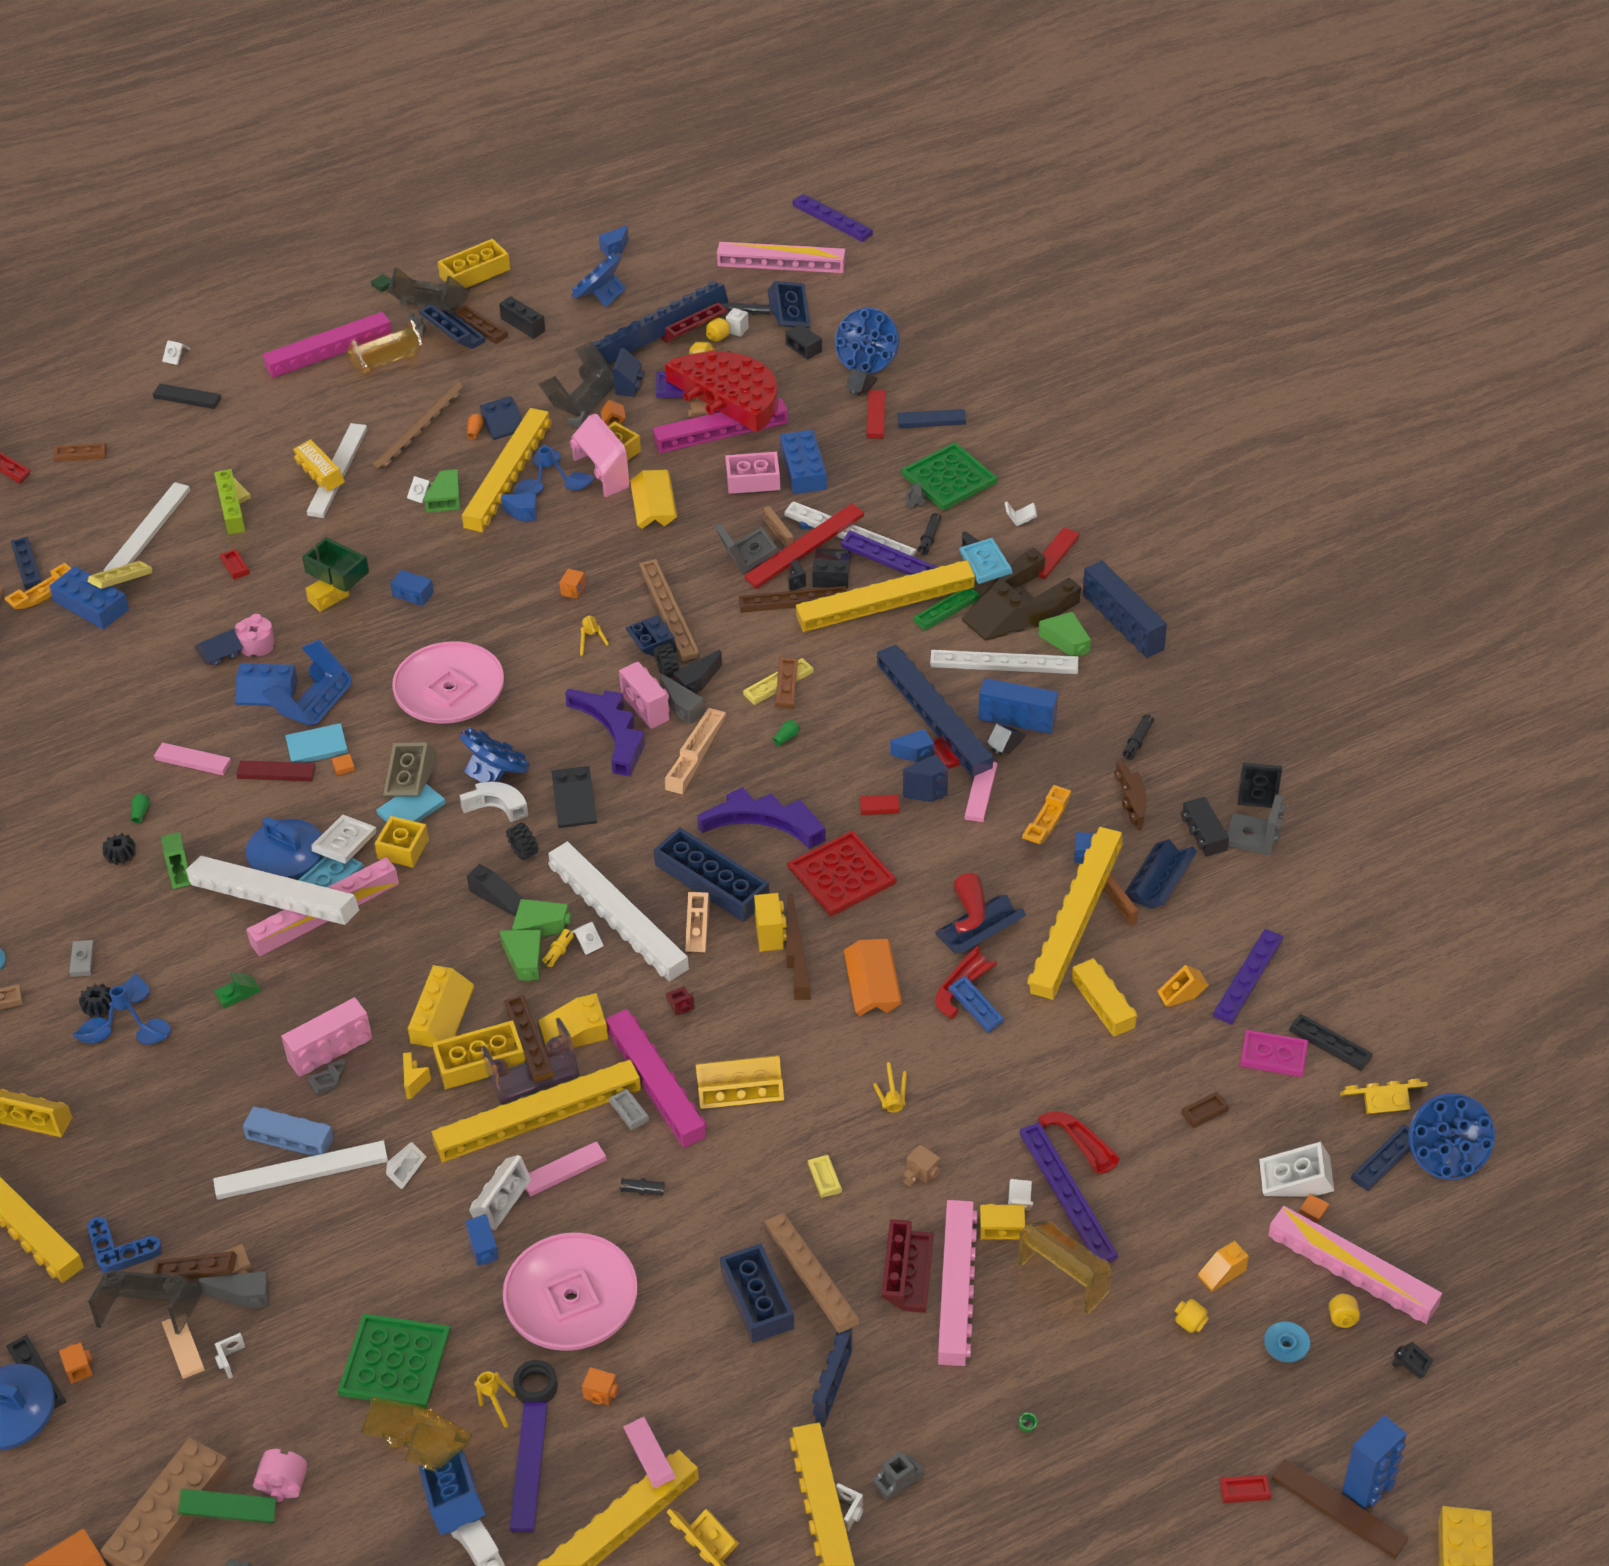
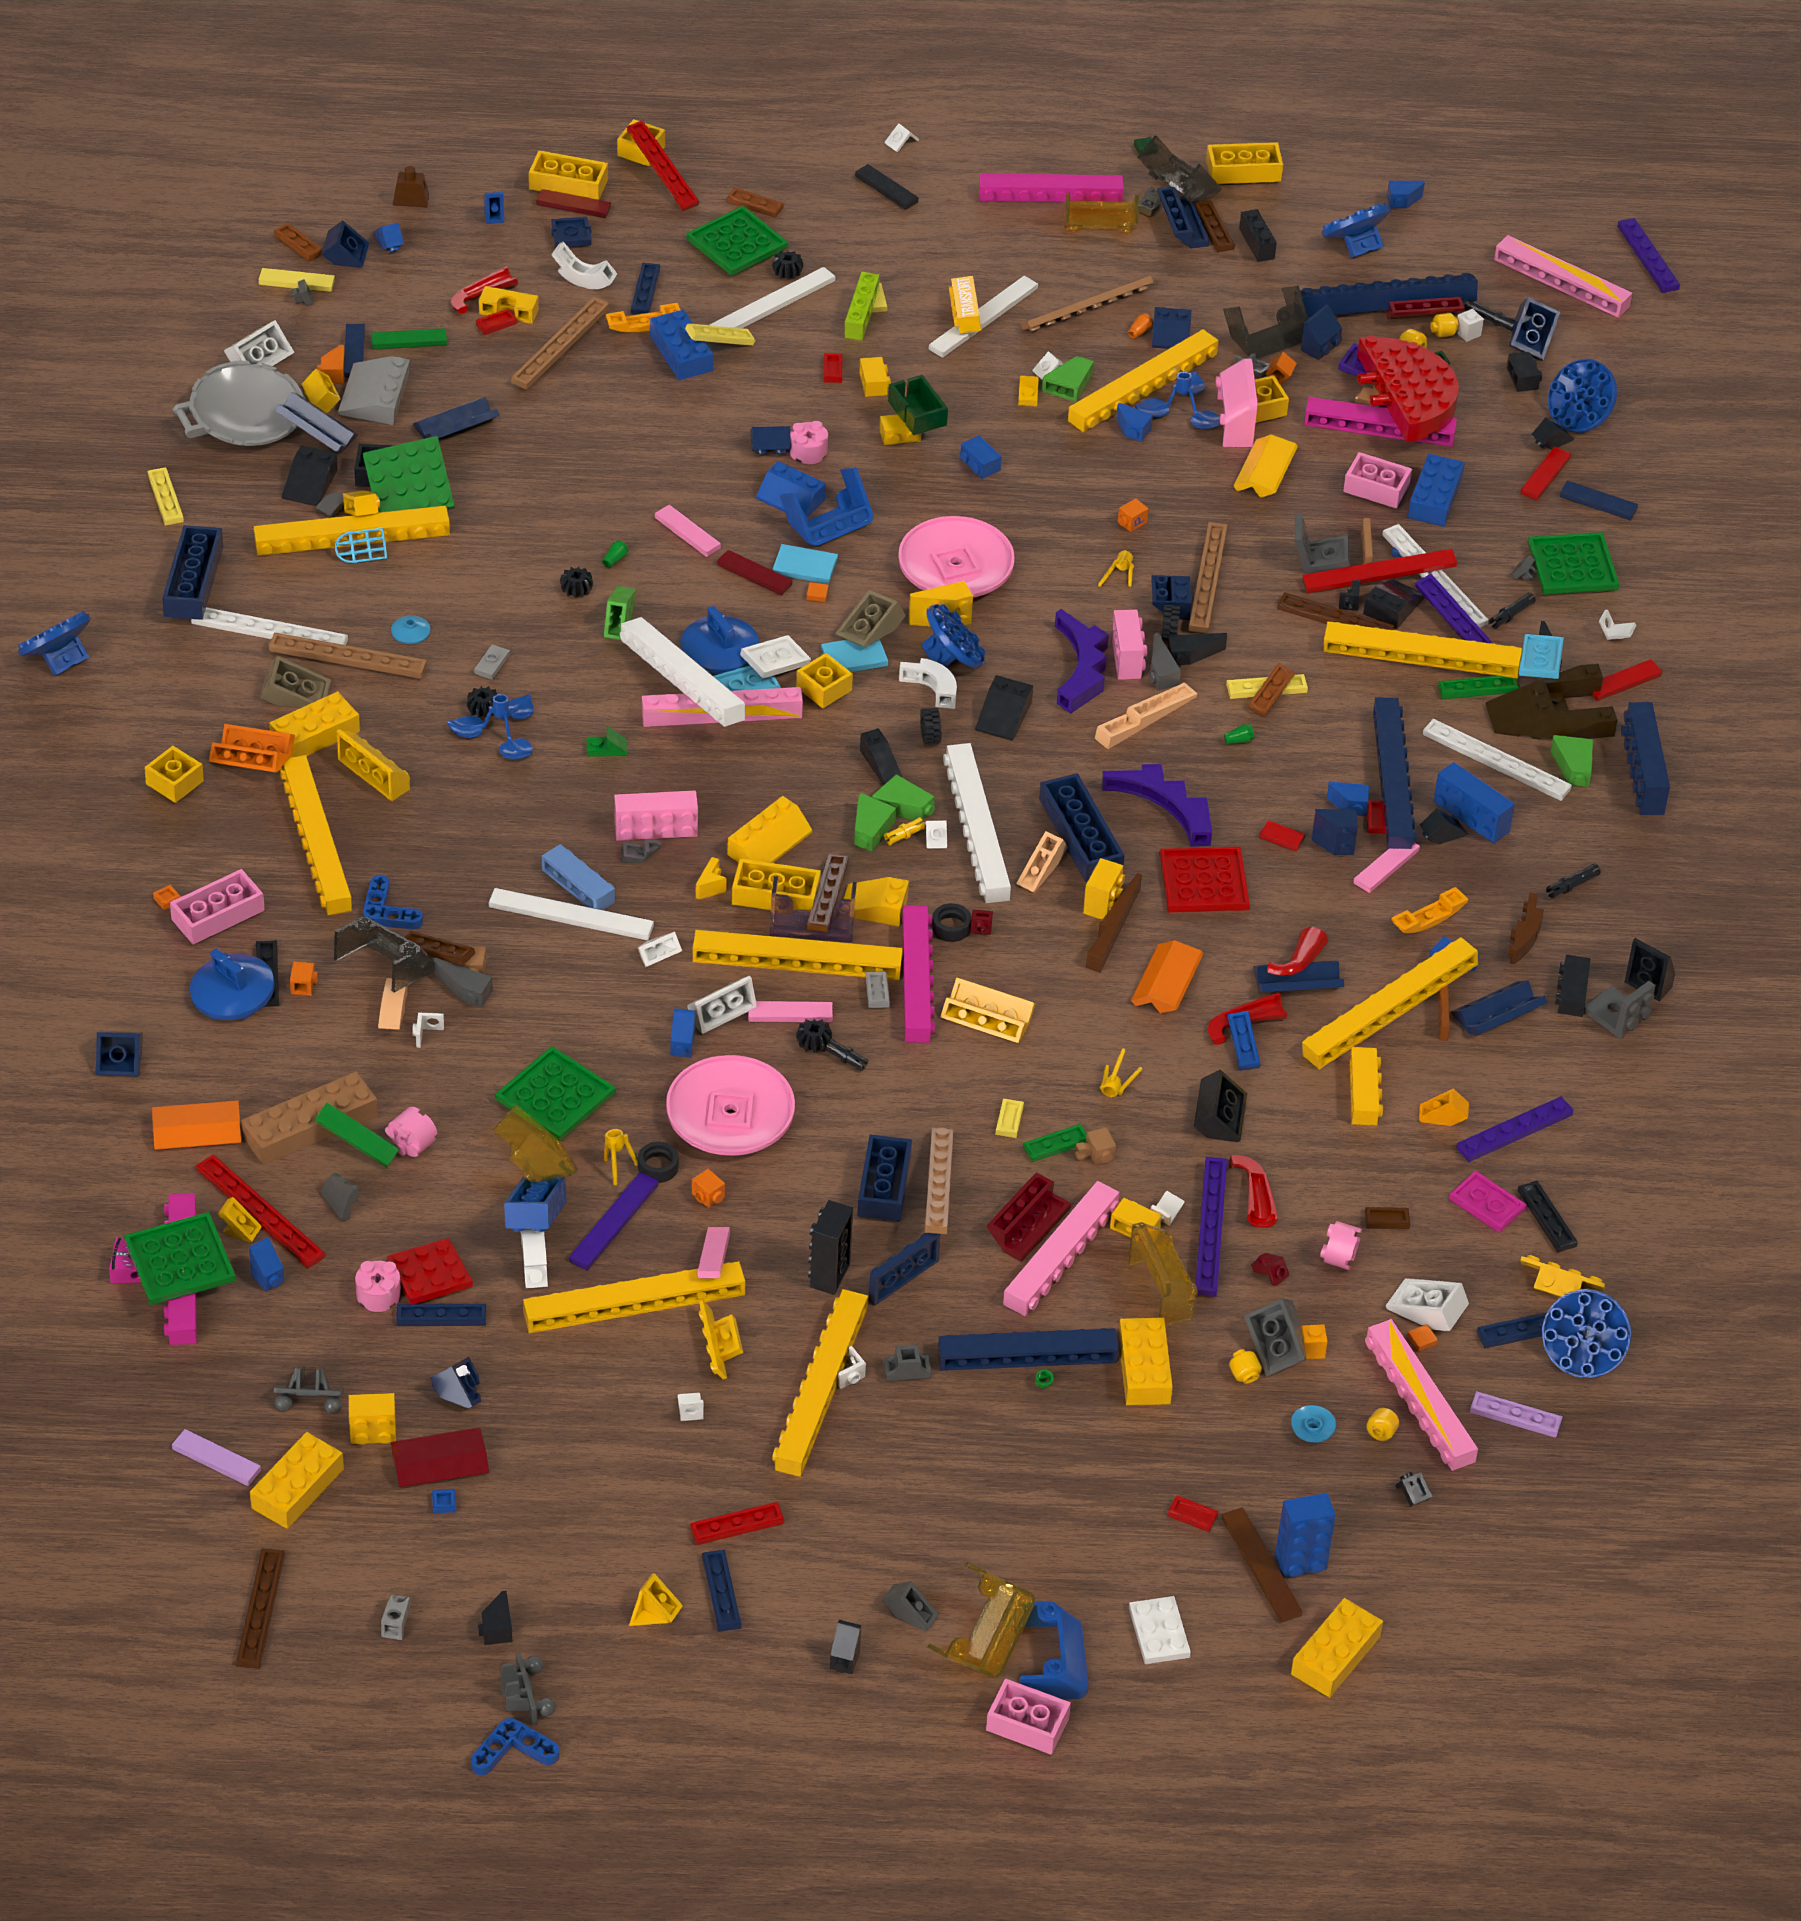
camera: 25 degrees right, 0 degrees up
(84, 489) = (737, 240): none -> green plate
(142, 492) = (787, 264): none -> black gear
(276, 557) = (874, 376): none -> yellow brick
(415, 516) = (1028, 390): none -> yellow slope
(448, 734) = (955, 596): none -> yellow slope
(601, 1182) = (813, 1035): none -> black gear
(654, 1001) = (951, 934): none -> black tyre
(761, 1392) = (830, 1247): none -> black brick
(880, 1180) = (1054, 1143): none -> green tile
(992, 1400) = (1027, 1349): none -> dark blue brick
(999, 1077) = (1220, 1108): none -> black slope
(1104, 1357) = (1145, 1361): none -> yellow brick
(1144, 1205) = (1273, 1266): none -> dark red bracket
(1193, 1156) = (1341, 1245): none -> bright pink brick
(1202, 1273) = (1277, 1336): none -> dark grey slope
(1439, 1241) = (1516, 1414): none -> lavender tile

